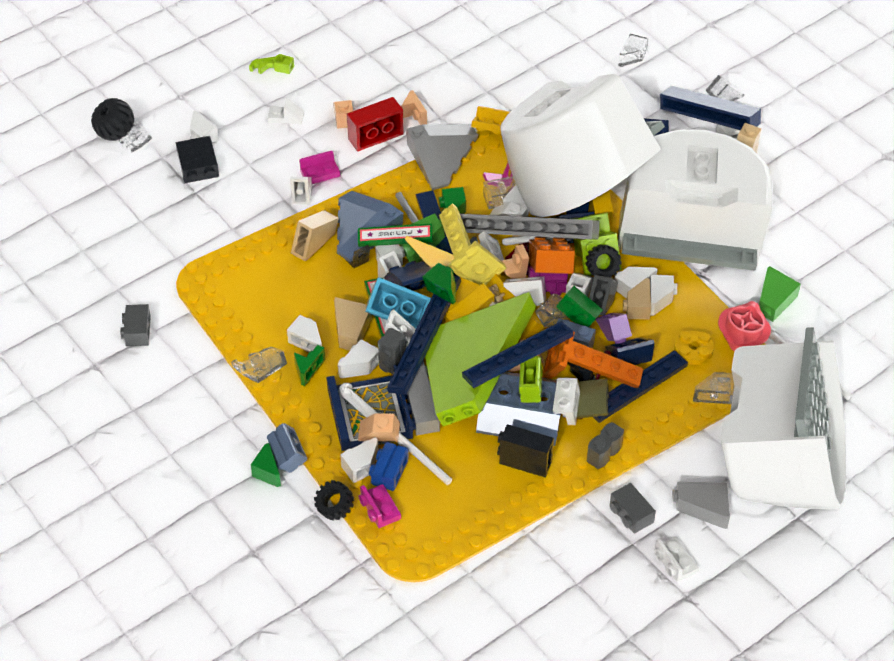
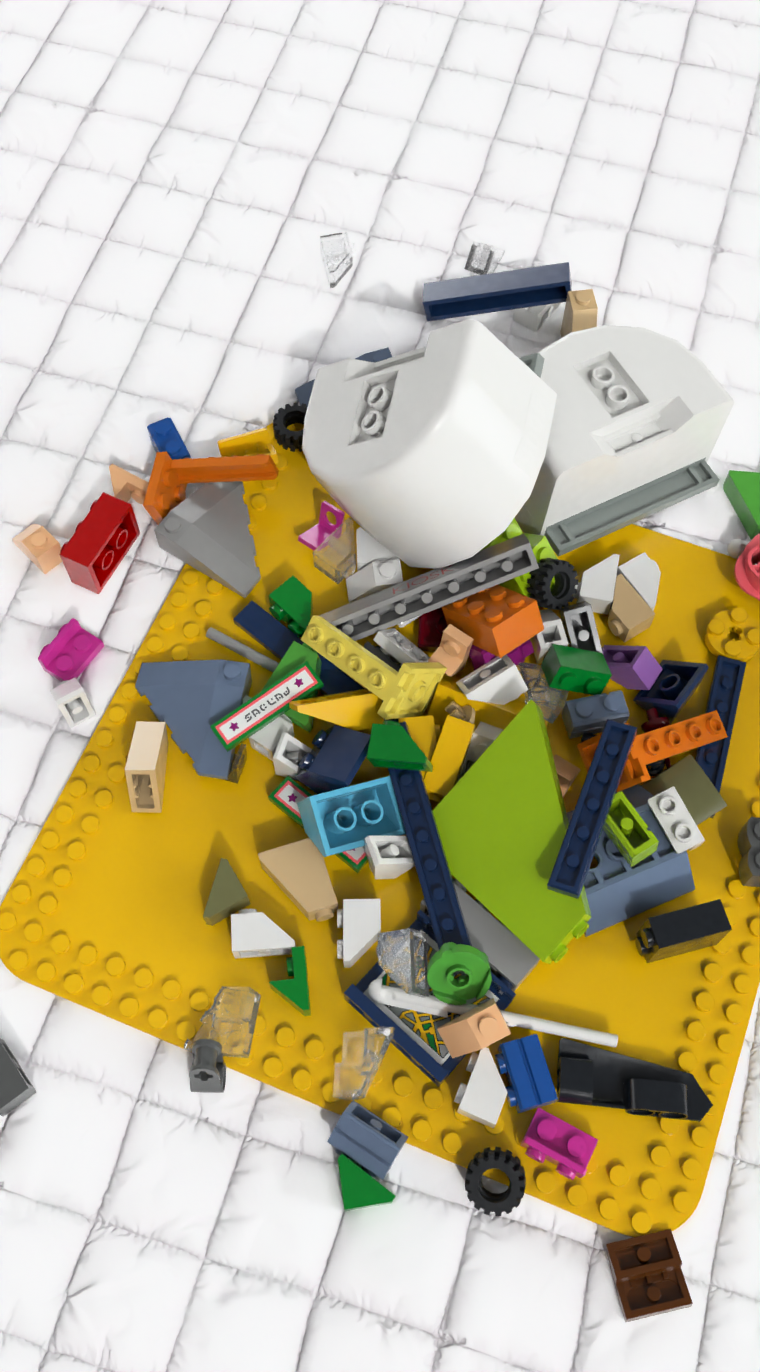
camera: 35 degrees left, 15 degrees up
(235, 374) = (208, 1068): none -> dark grey piece
(301, 414) = (360, 1061): none -> clear slope
(305, 307) = (225, 896): none -> olive slope
(370, 379) = (404, 959): none -> clear slope
(376, 588) = (648, 1275): none -> reddish brown slope
(391, 349) = (398, 891): dark grey brick -> none
(397, 390) = (455, 958): none -> bright green plate
(438, 111) = (170, 477): none -> orange bracket
(438, 502) = (619, 1081): none -> black panel
(452, 100) = (166, 438): none -> blue brick

